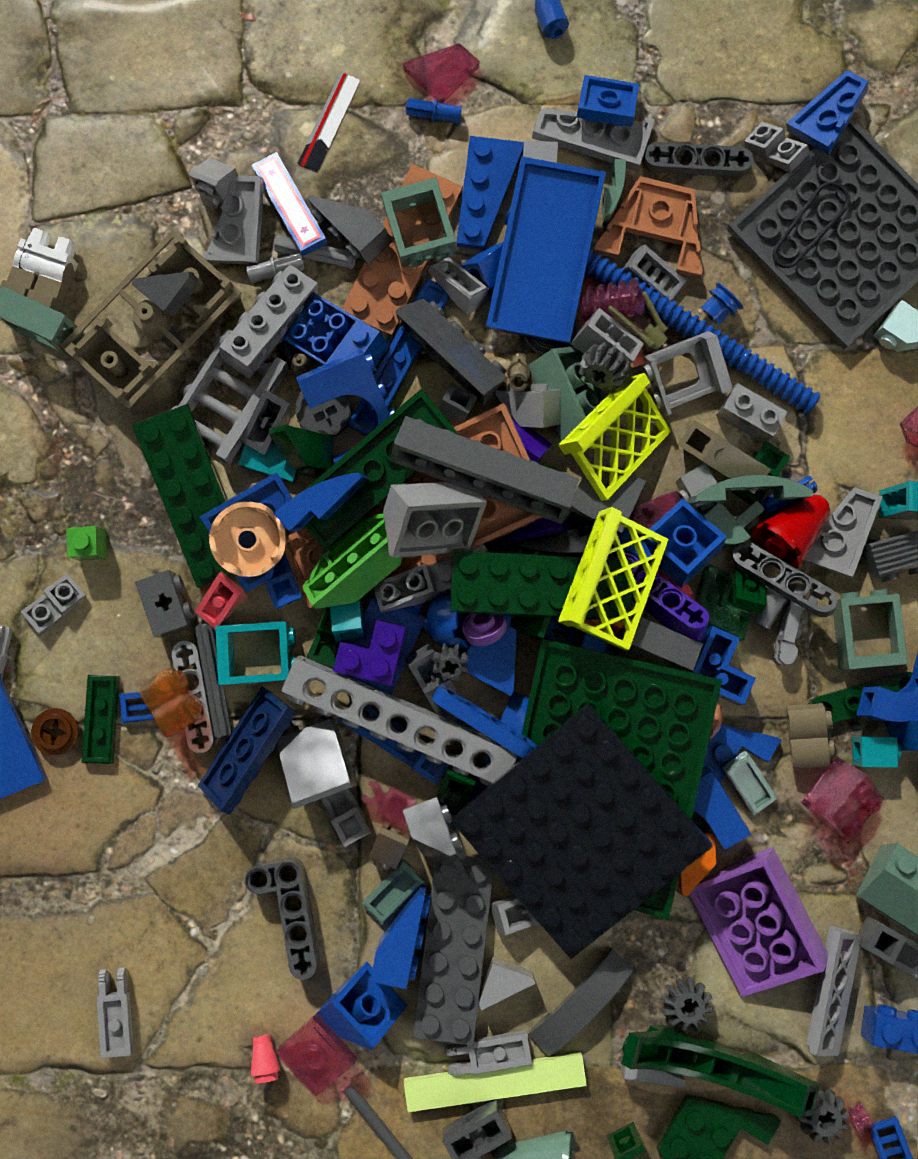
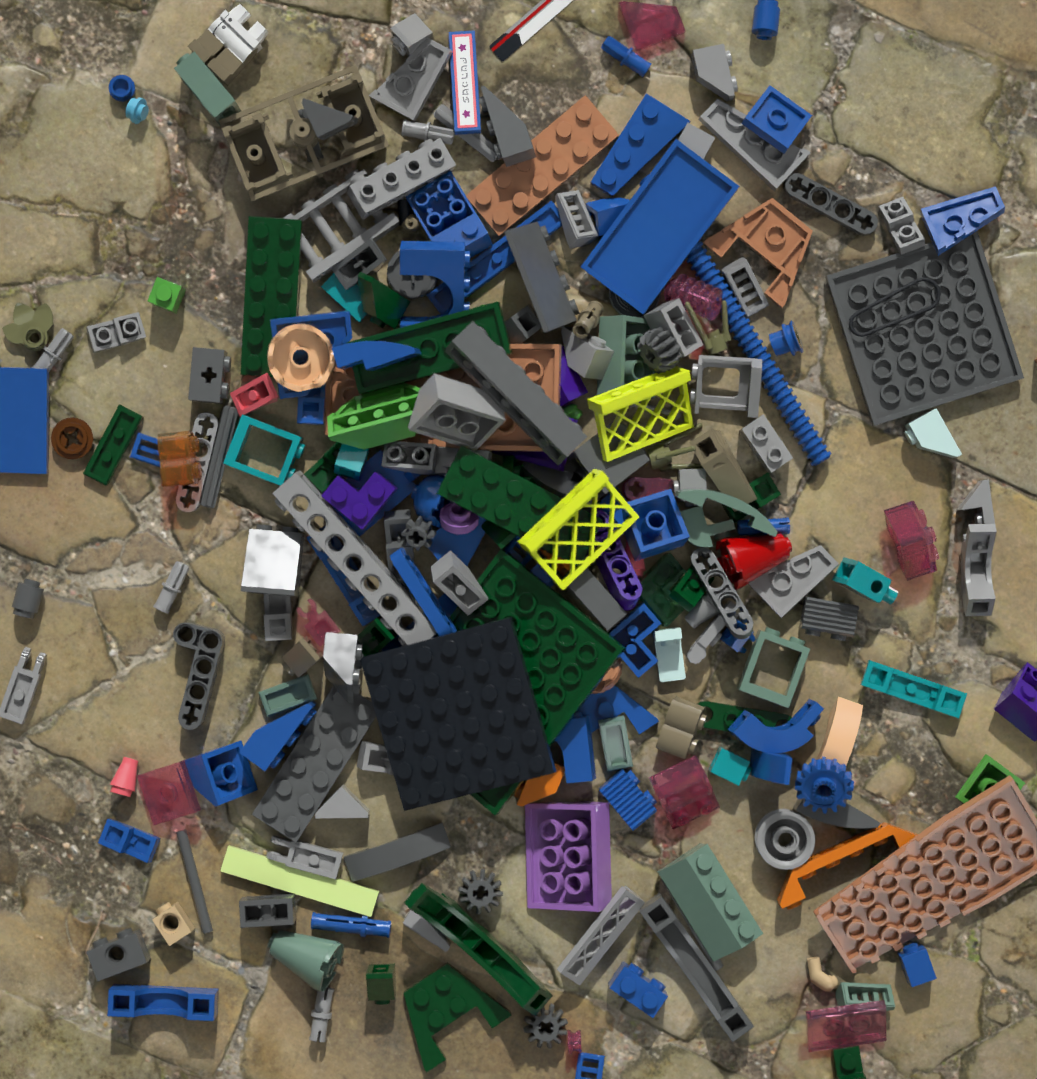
camera: 20 degrees right, 5 degrees up
(79, 919) = (27, 598): none -> dark grey brick
(223, 839) = (171, 587): none -> light grey axle
(246, 750) = (222, 526): dark blue plate -> none
(298, 1123) = (129, 840): none -> blue slope
(409, 197) = (565, 127): sand green window -> none
(515, 694) = (458, 582): none -> light grey slope
(524, 84) = (713, 72): none -> light grey slope
(570, 1104) = (351, 925): none -> blue pin
(611, 195) = (740, 204): sand green slope -> none
(655, 473) = (662, 456): none -> olive plant
(756, 662) = (669, 654): none -> light aqua bracket
(790, 834) = (628, 799): none -> blue brick
(815, 623) = (734, 643): none -> blue tile

